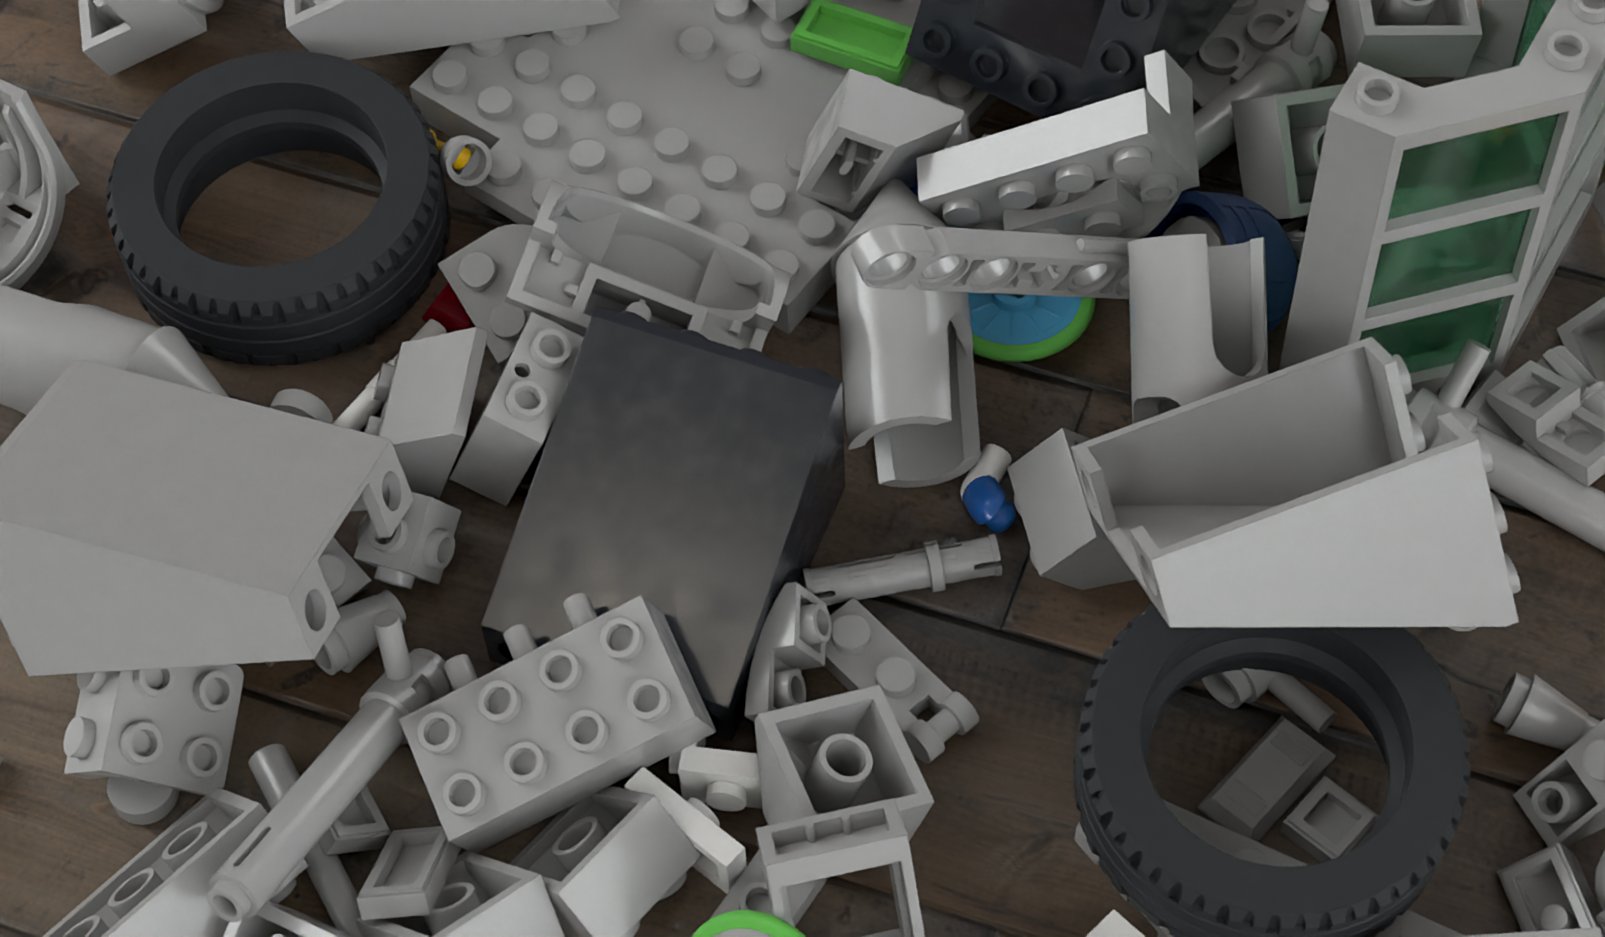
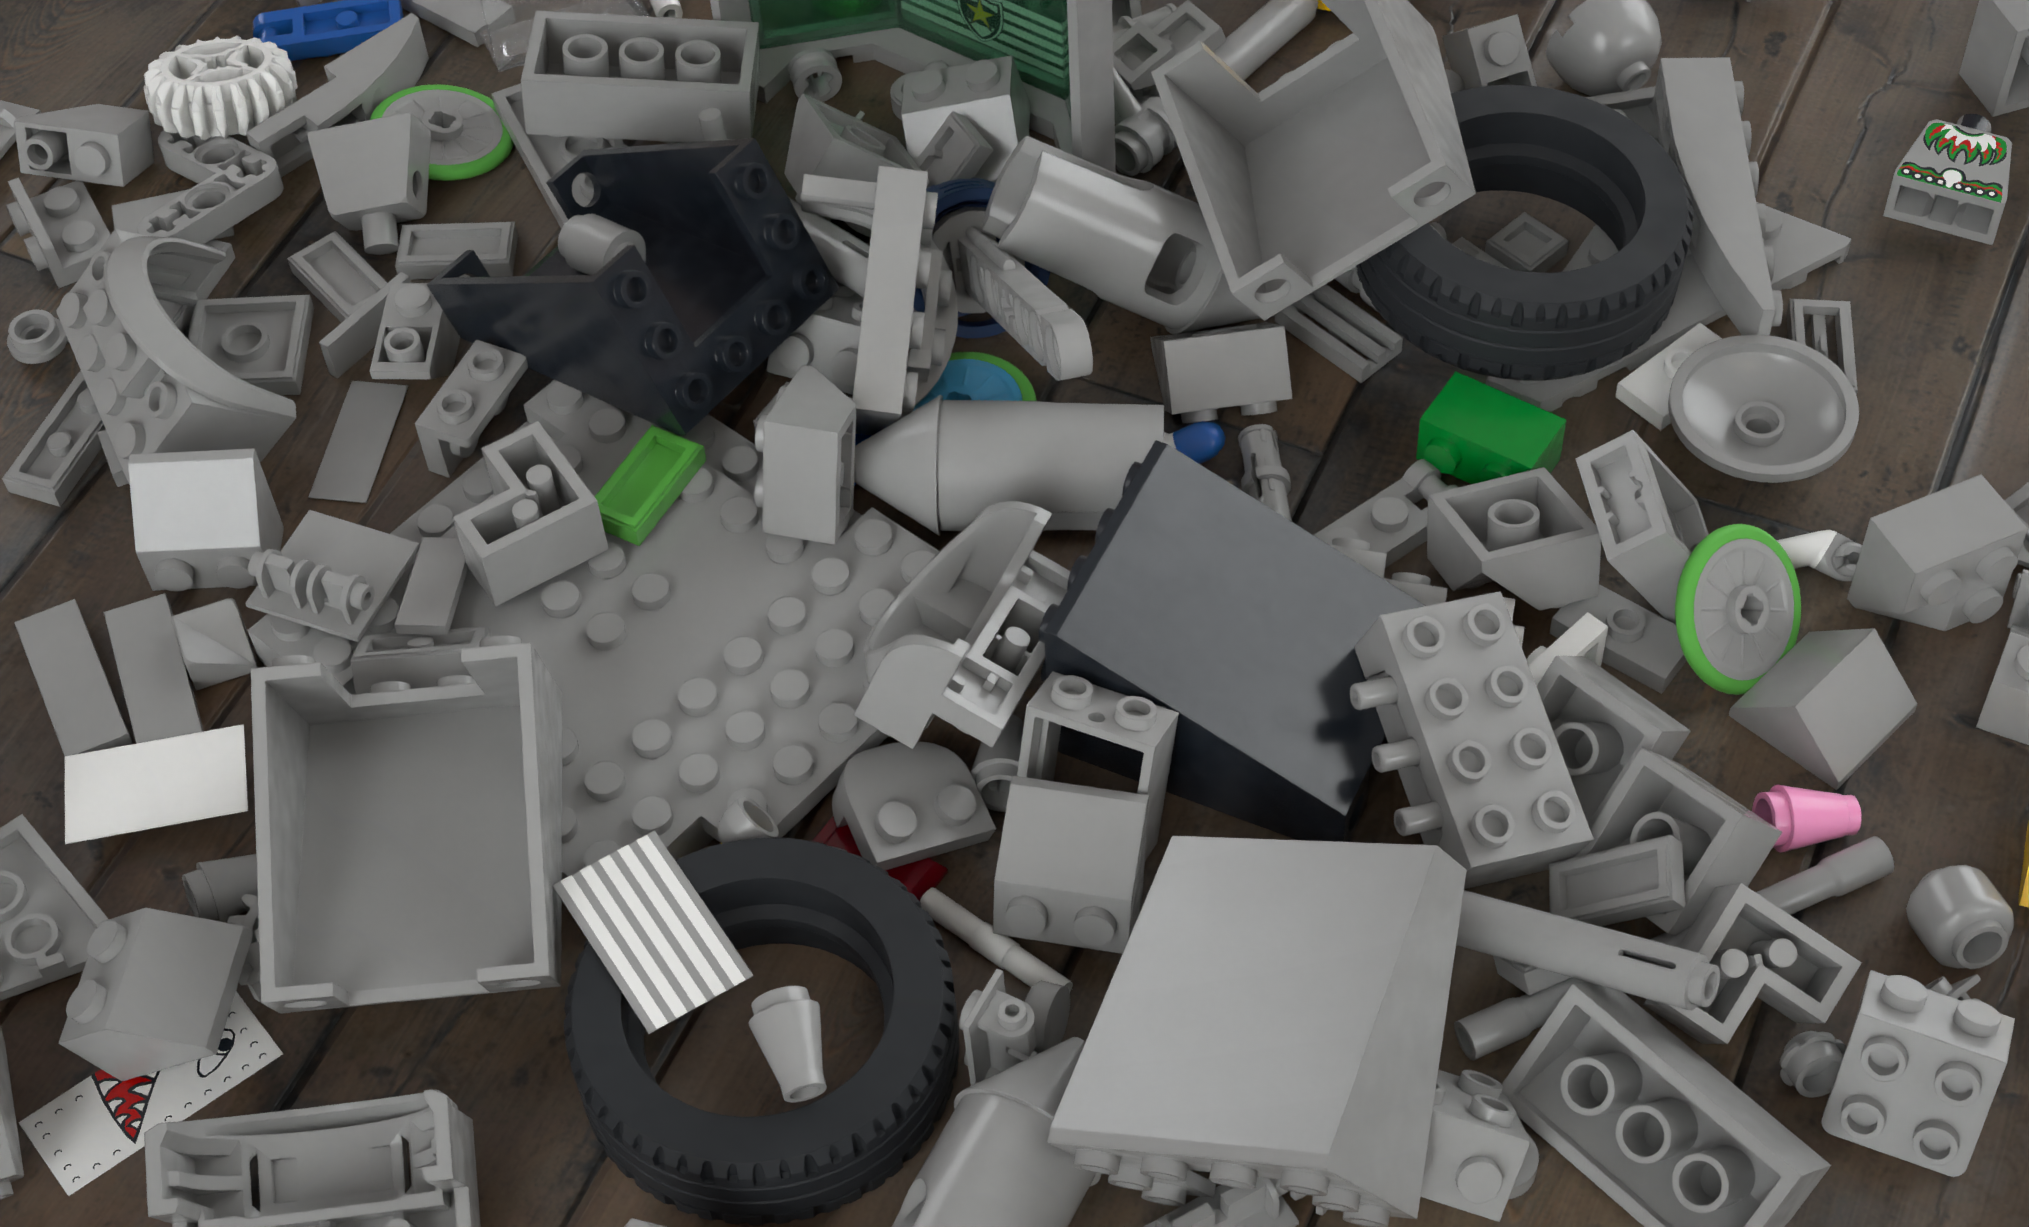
camera: 85 degrees left, 5 degrees down
(202, 189) = (790, 1038): none -> light grey cone
(253, 360) = (996, 1030): none -> light grey hinge
(334, 93) = (652, 931): none -> sticker
(996, 765) = (1487, 433): none -> green brick

